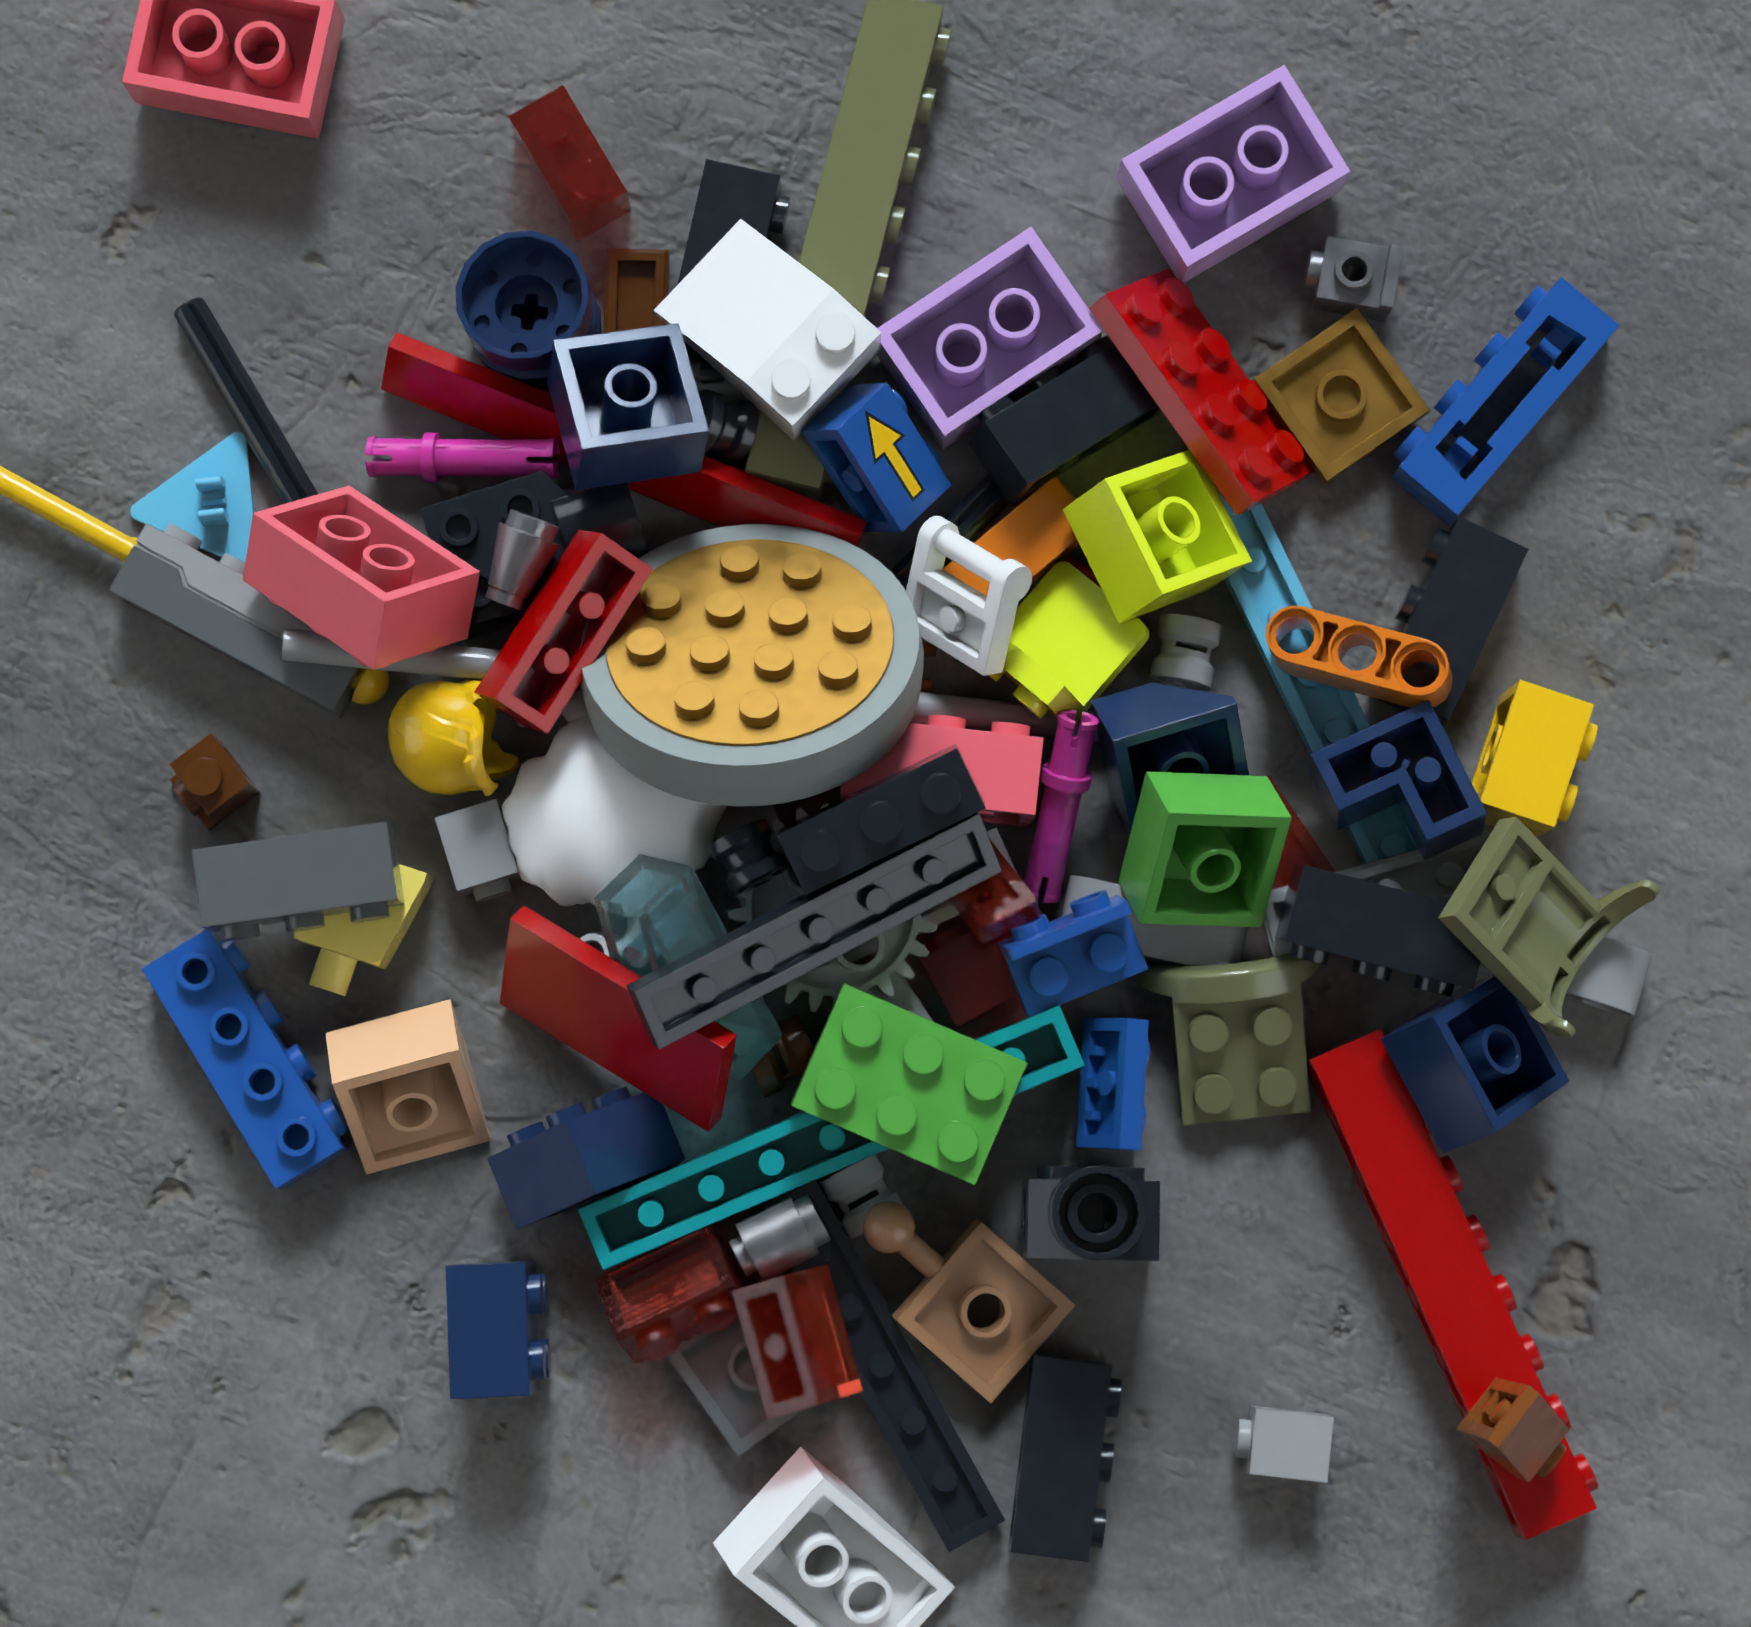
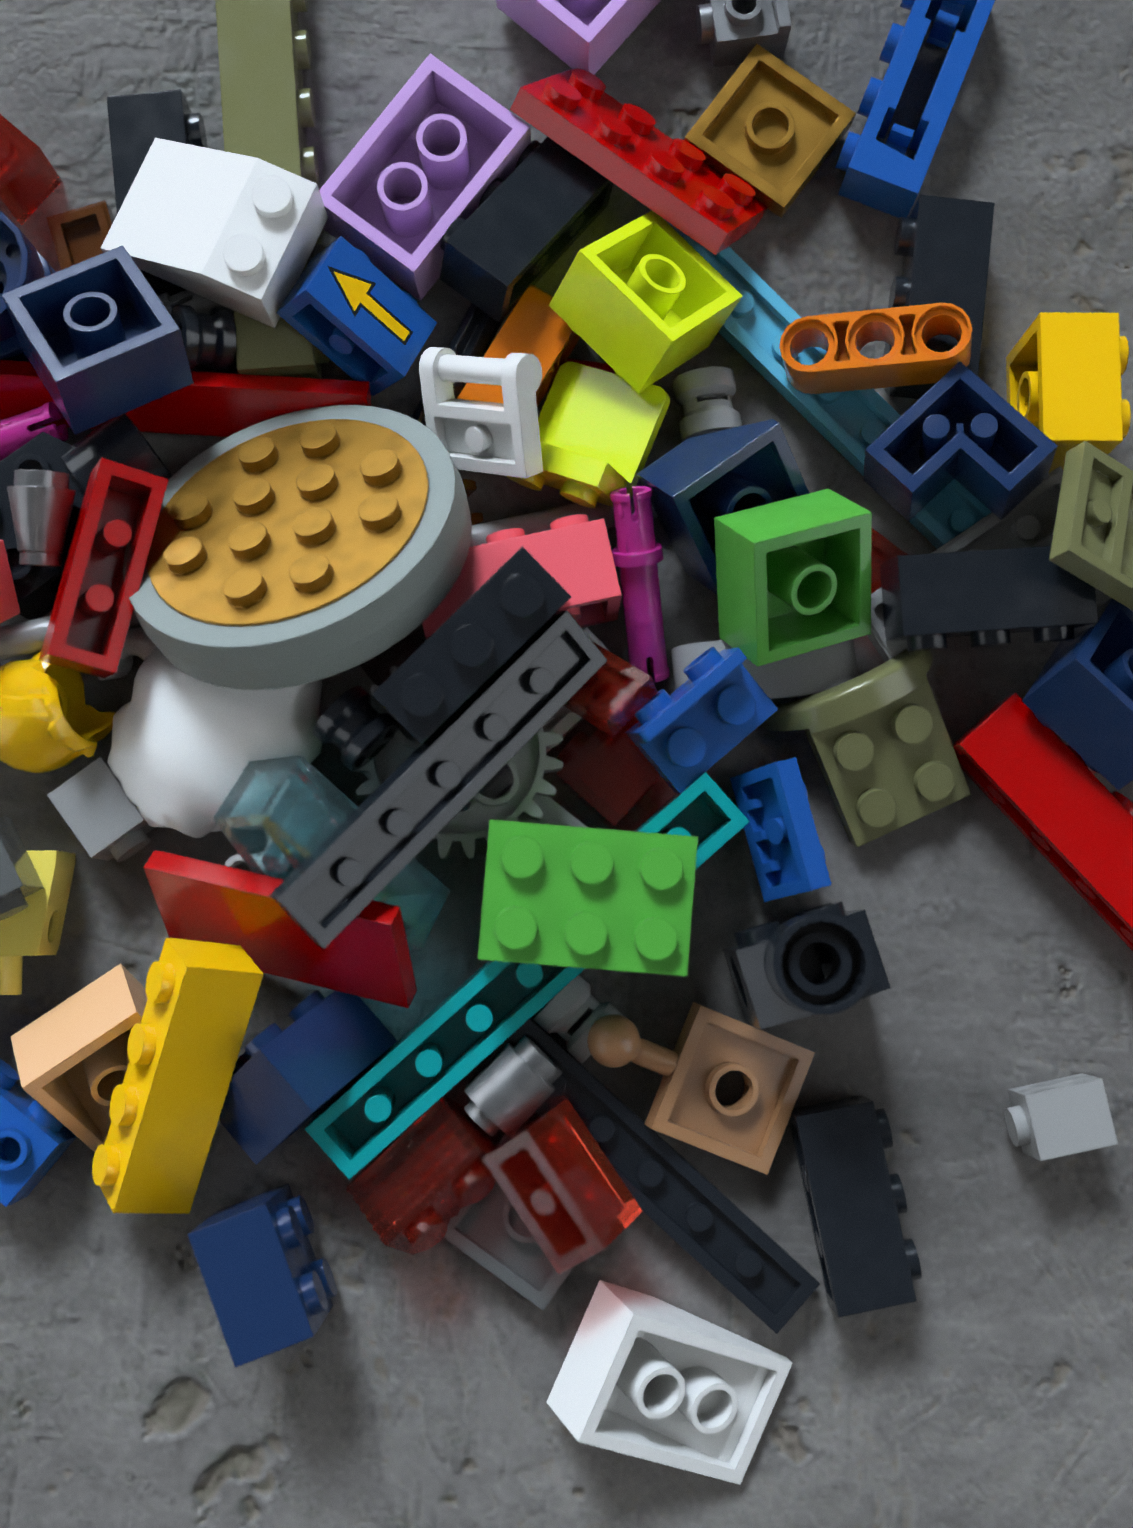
camera: 15 degrees left, 0 degrees up
(474, 1122) = (176, 1076): none -> yellow brick
(795, 1052) = (467, 901): reddish brown wheel -> none

